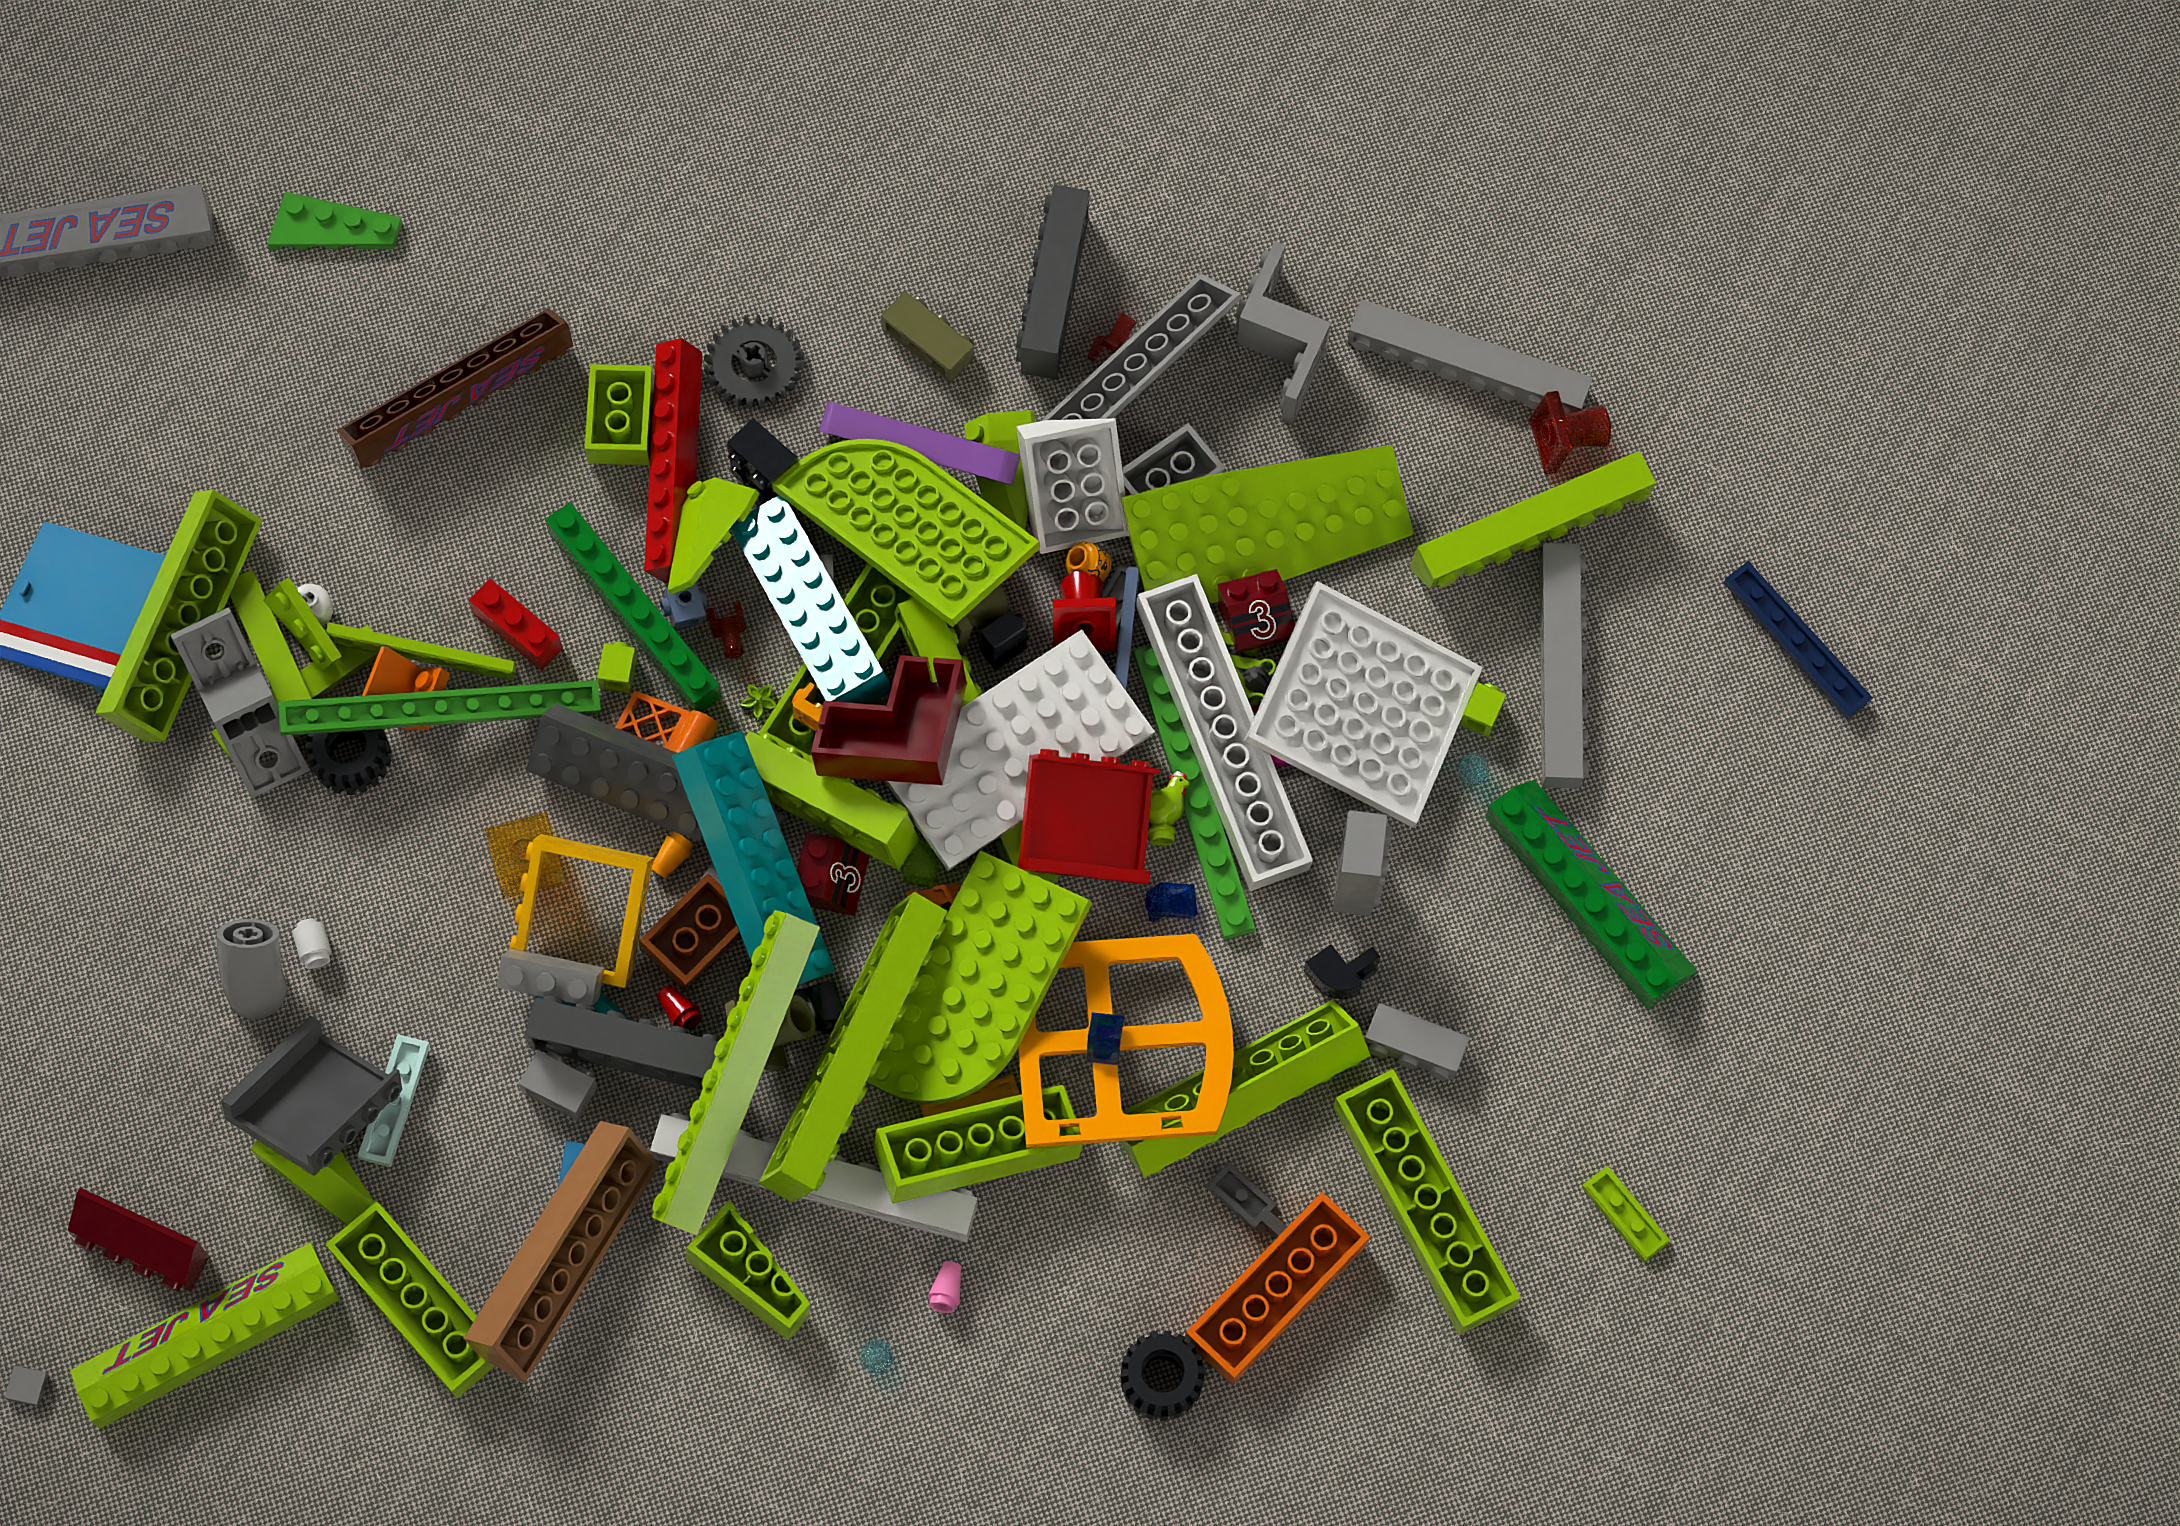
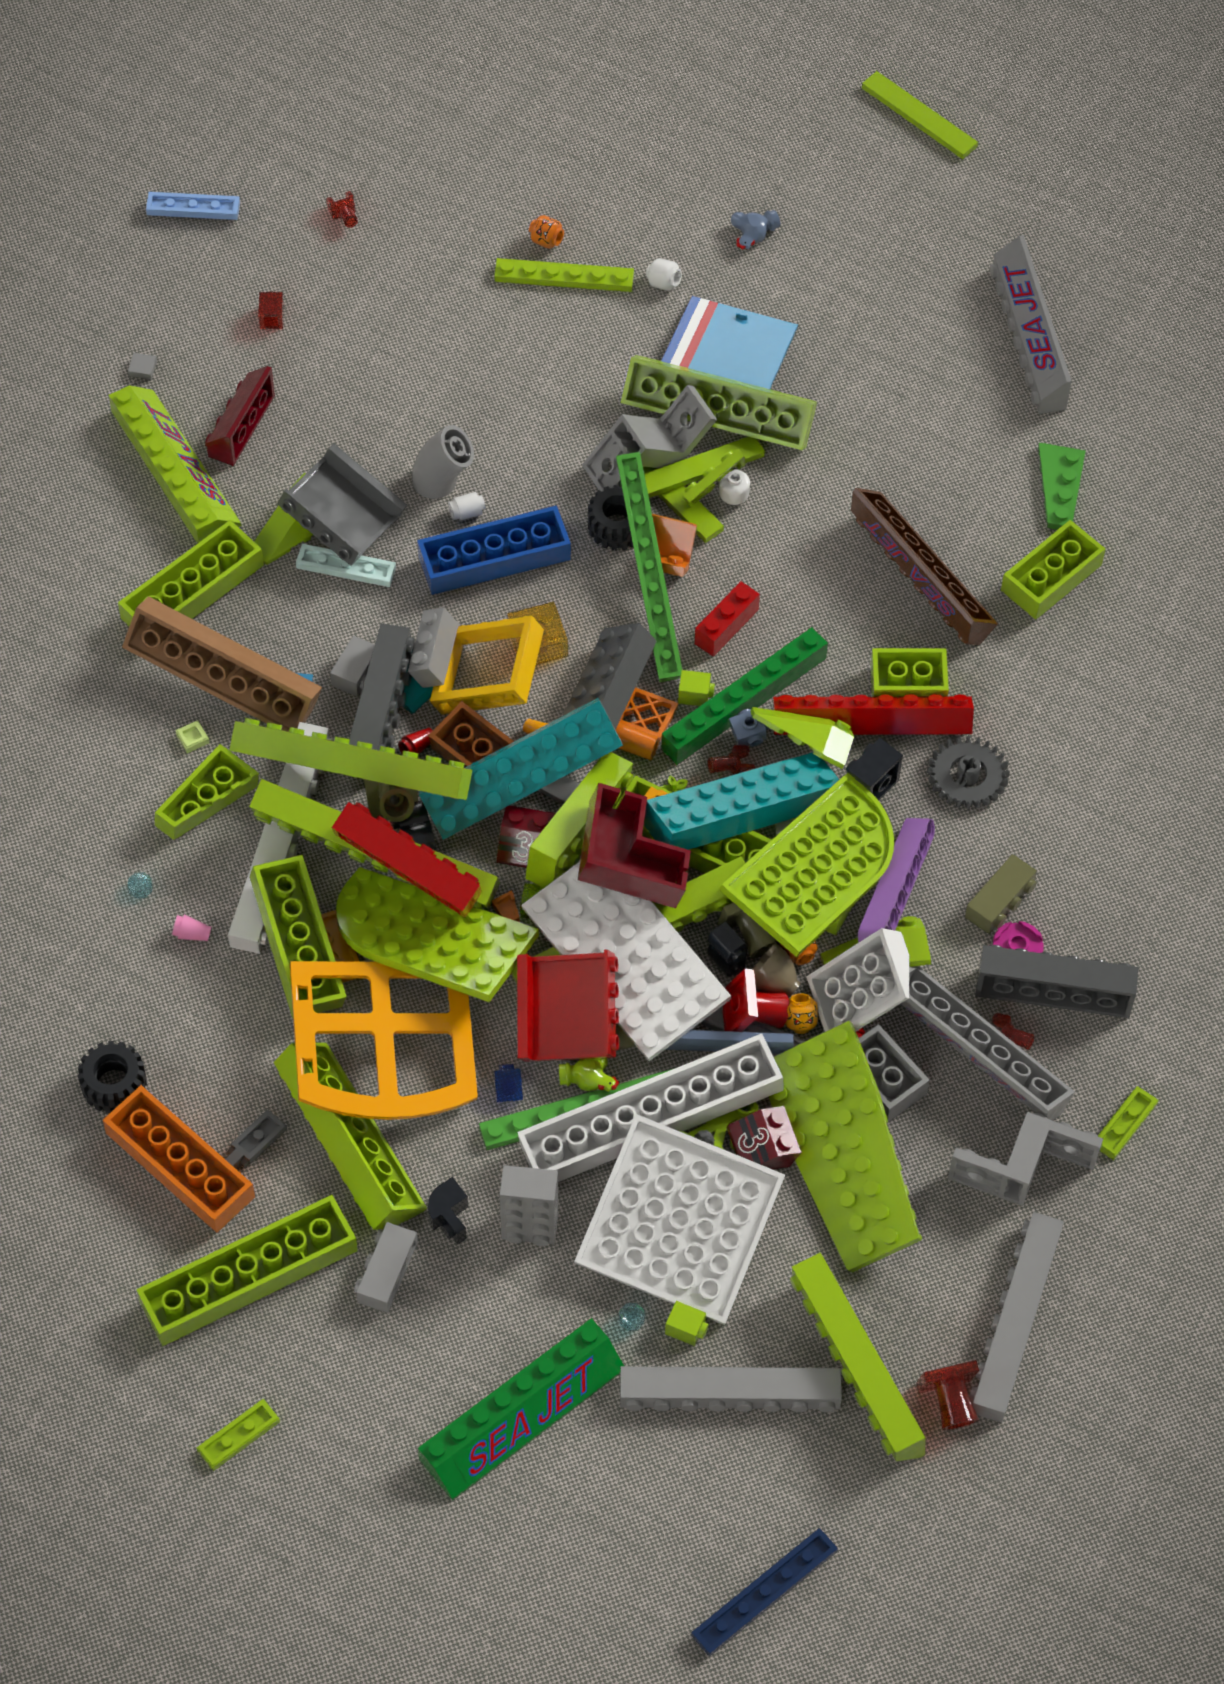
camera: 90 degrees right, 10 degrees down
(390, 906) = (494, 550): none -> blue brick
(422, 651) = (699, 557): lime tile -> none
(470, 240) = (1052, 569): none -> lime brick
(651, 1297) = (192, 736): none -> yellowish green tile
(903, 989) = (407, 859): none -> red brick
(992, 326) = (1019, 936): none -> dark pink tile
(1032, 592) = (776, 972): none -> dark tan piece
(1104, 1038) = (380, 1017): clear blue bracket -> none
(1225, 232) = (1126, 1122): none -> lime tile

